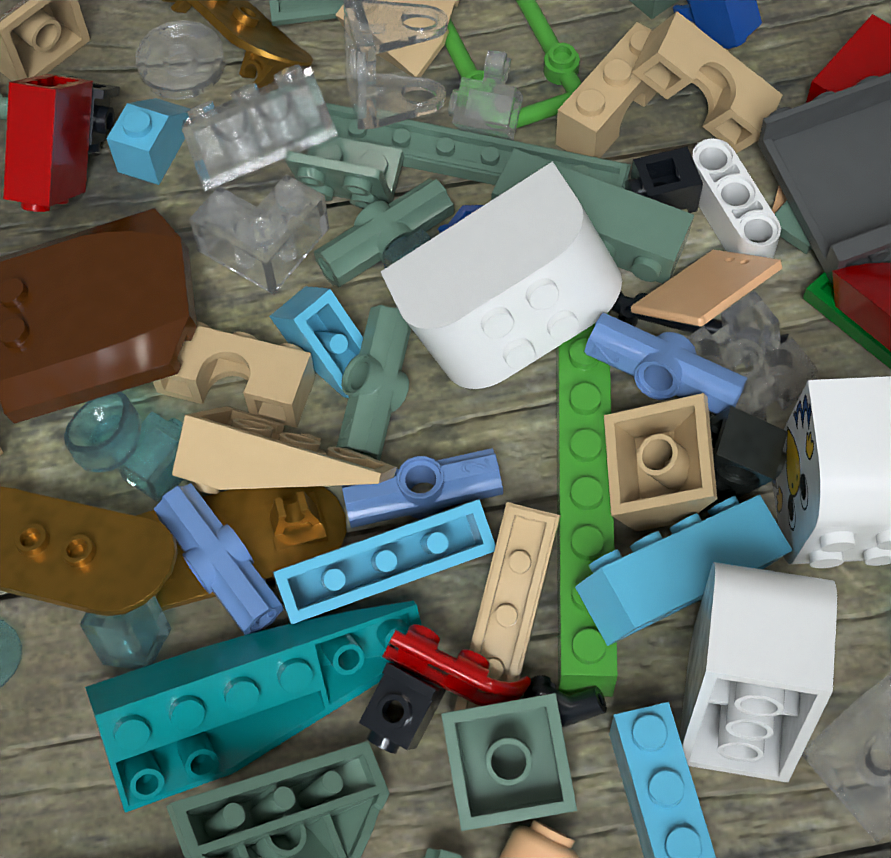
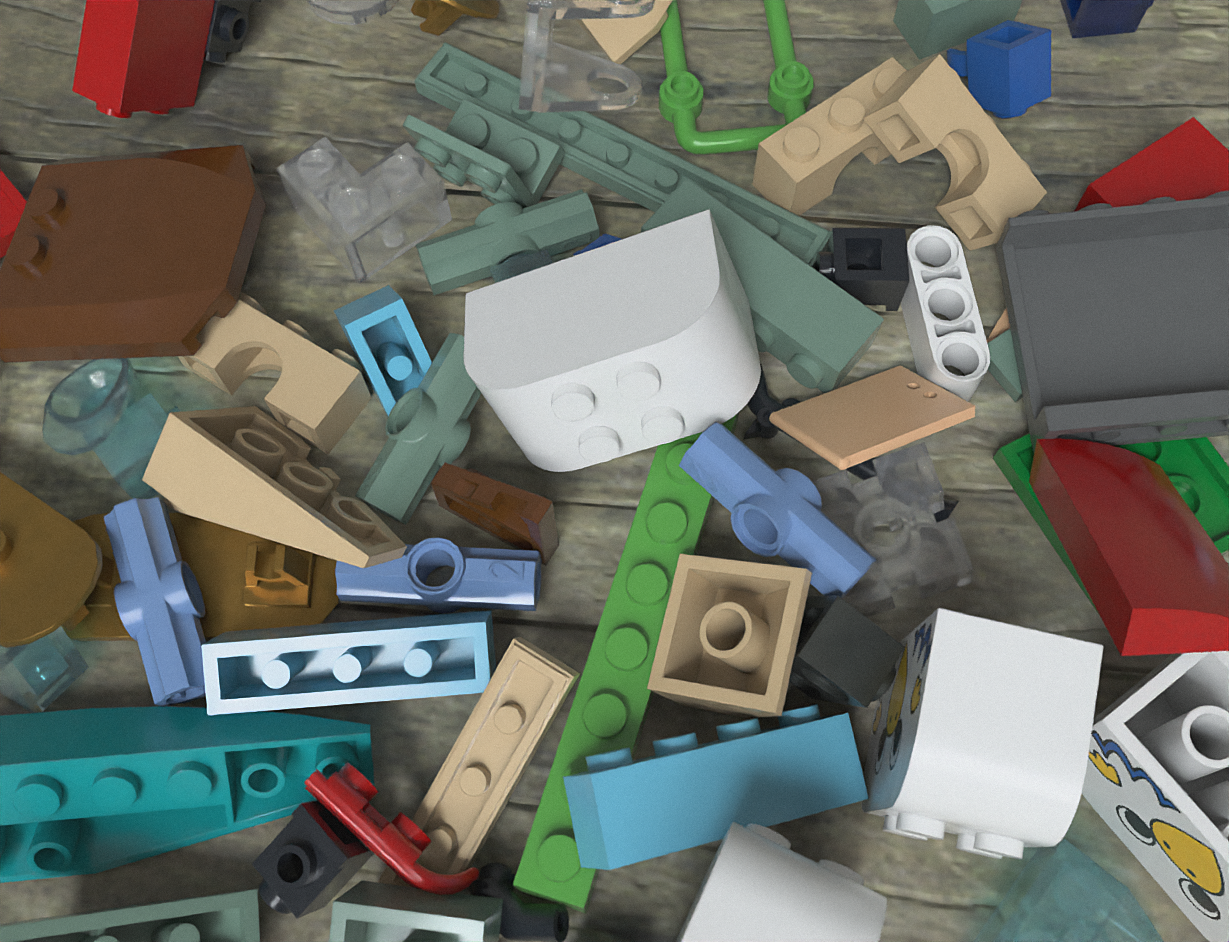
camera: 15 degrees right, 5 degrees up
(147, 138) = (280, 58): medium azure slope -> none
(257, 126) = (394, 76): clear slope -> none
(450, 425) = (498, 509): none -> reddish brown wing
(488, 104) = (681, 115): clear brick -> none

